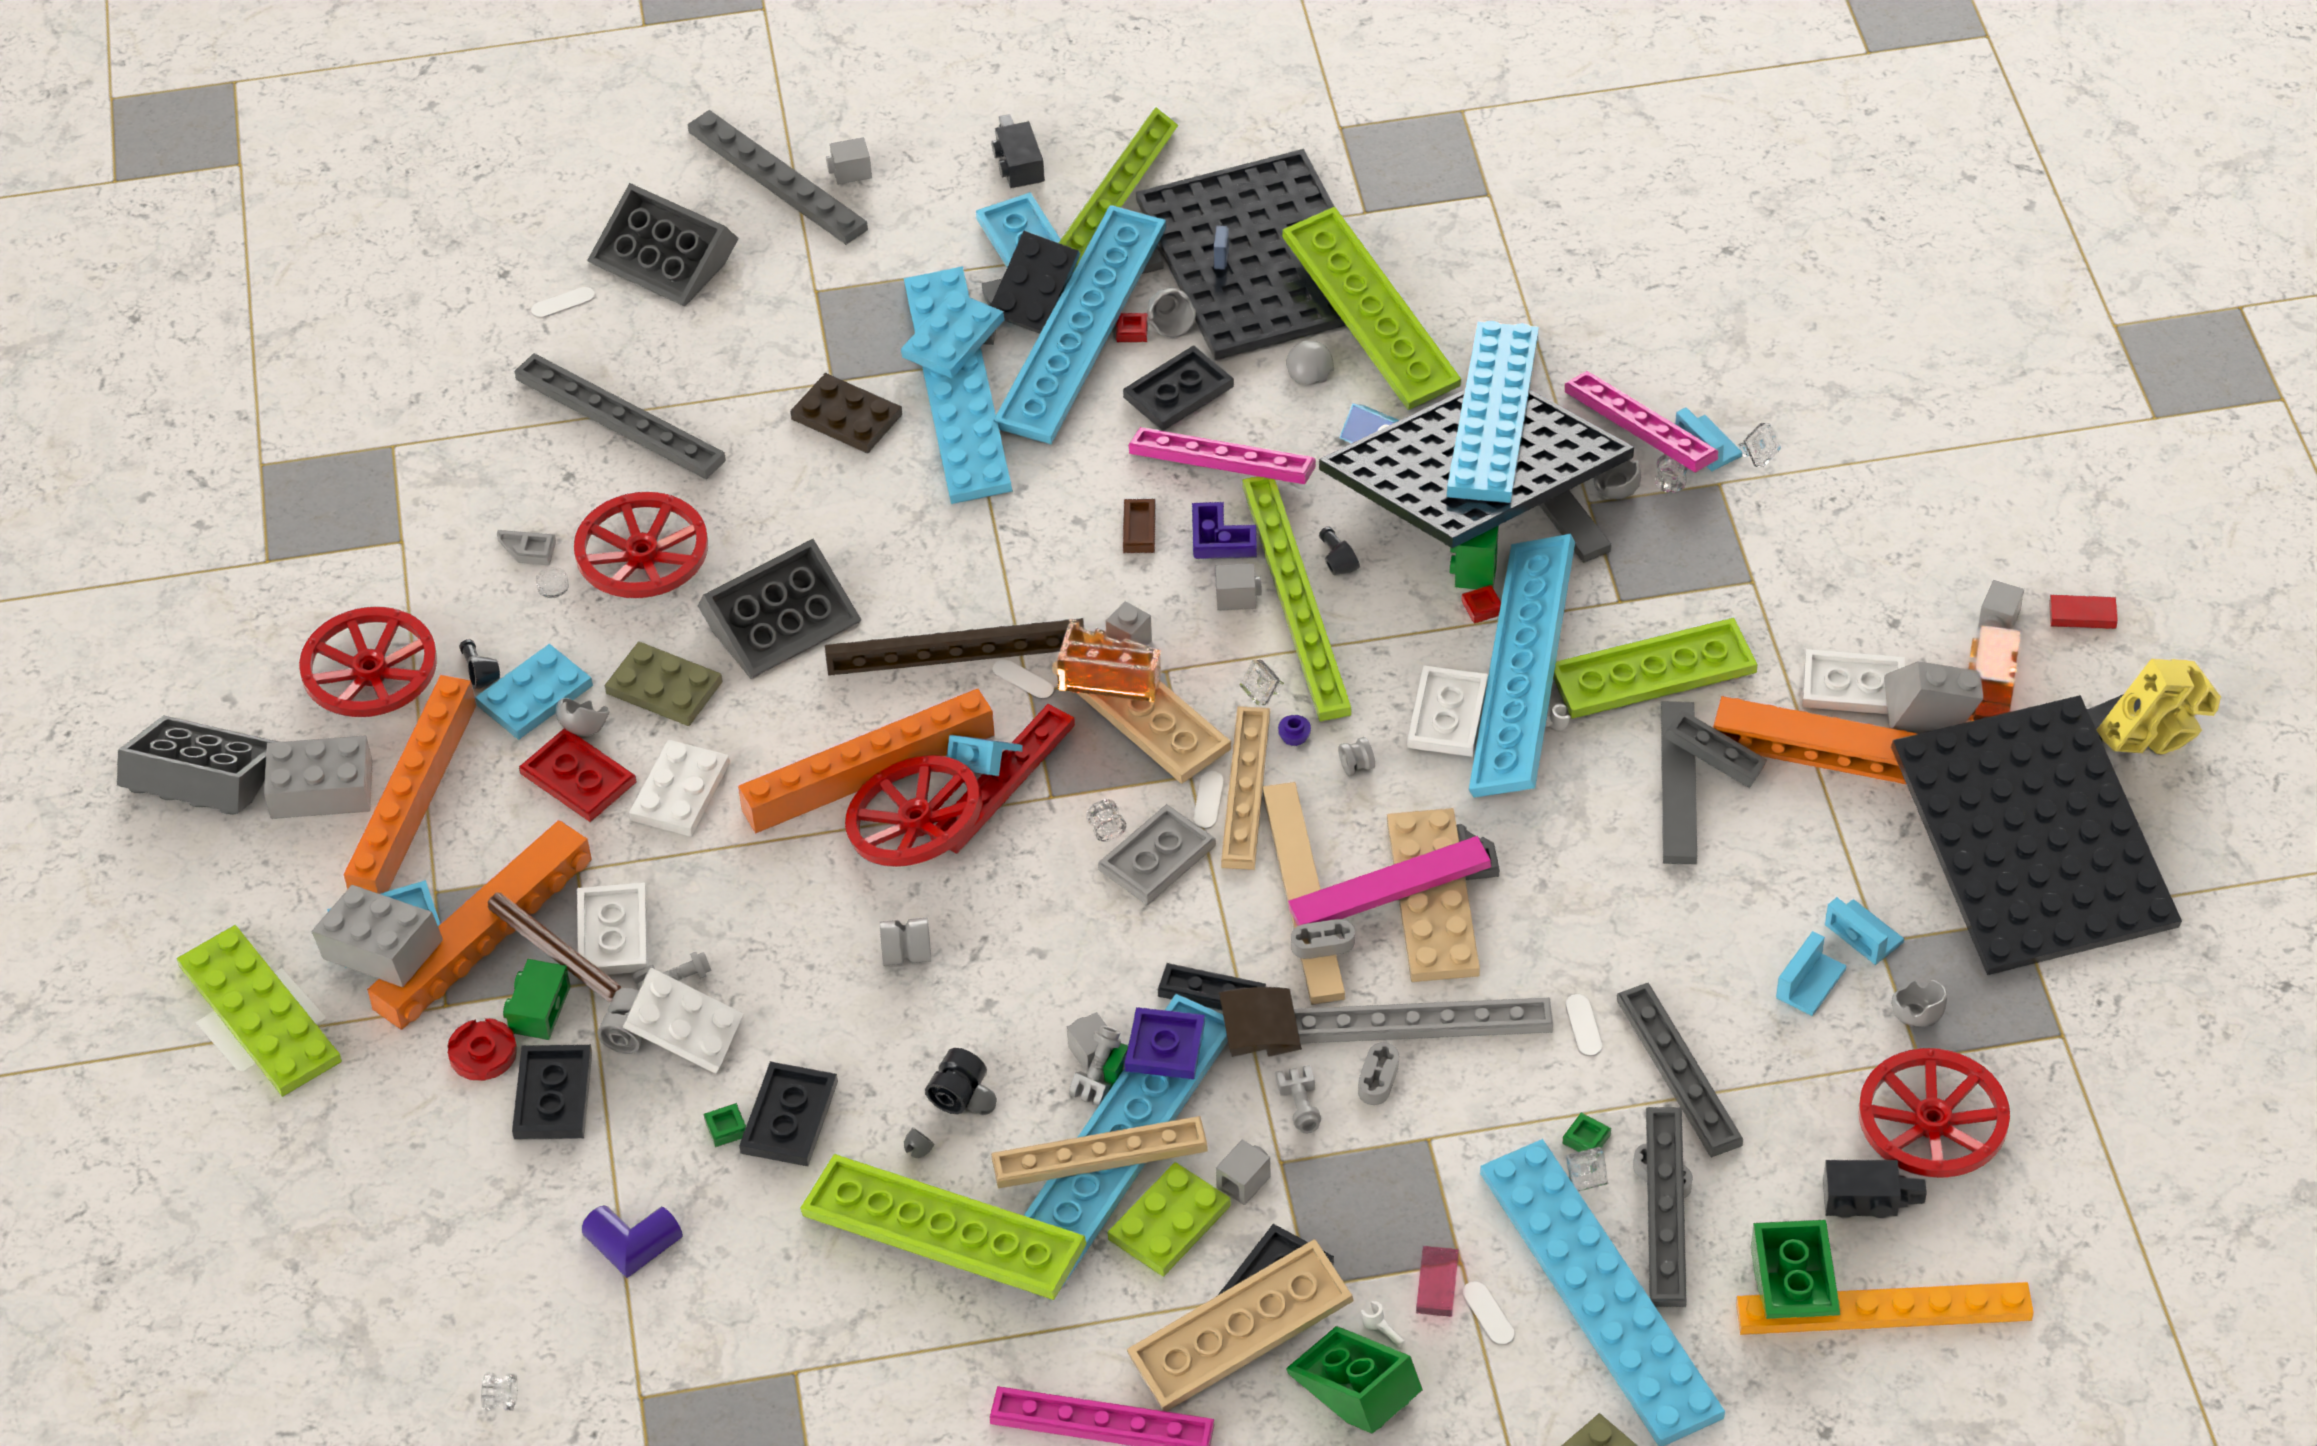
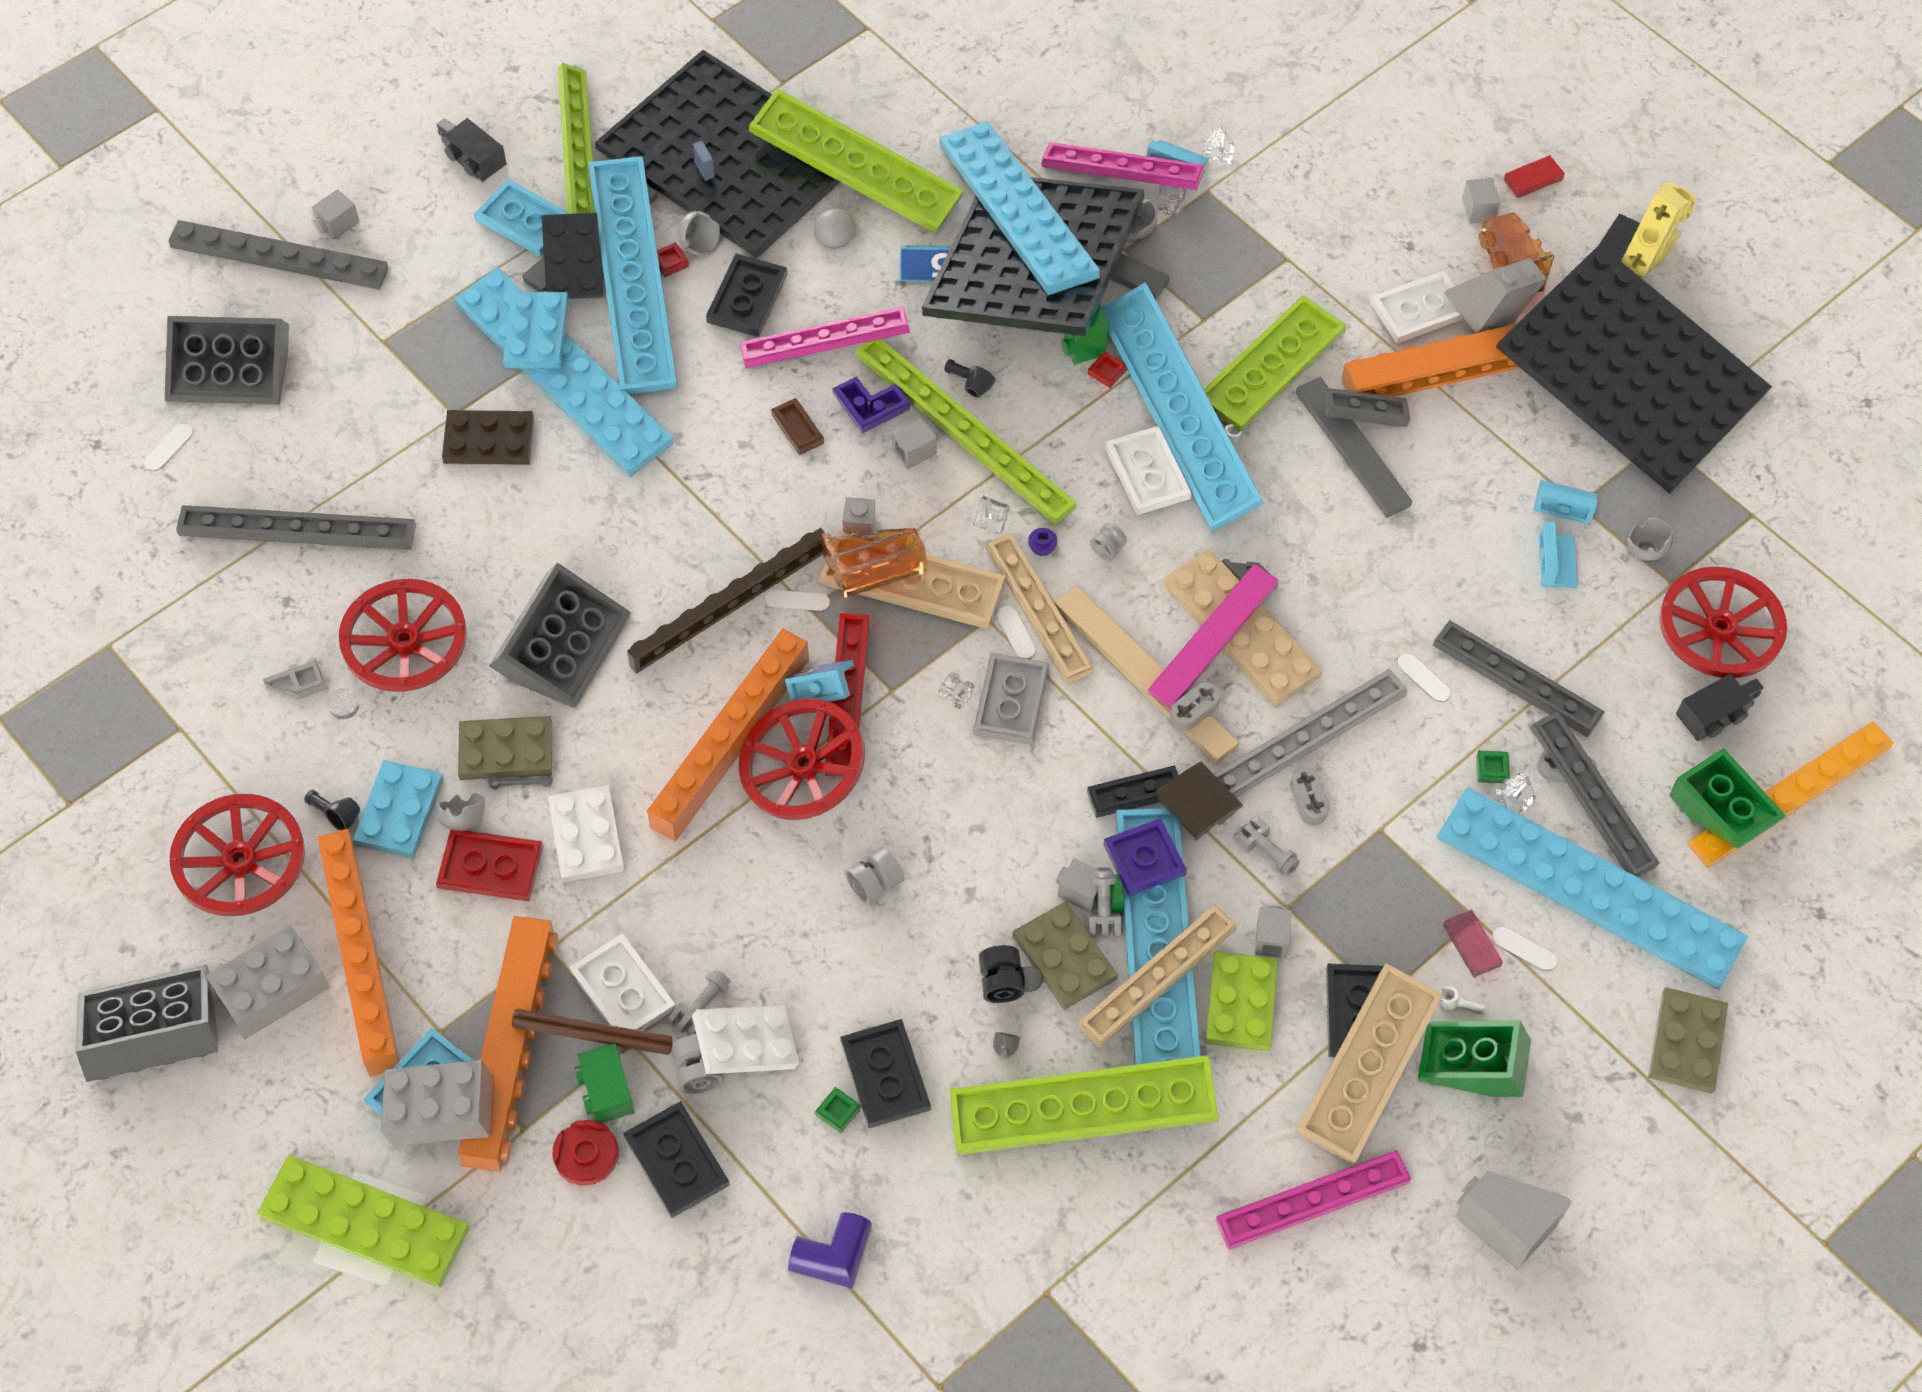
camera: 35 degrees left, 10 degrees up
(634, 709) = (495, 782): none -> dark grey hinge
(1032, 1097) = (1065, 955): none -> olive plate

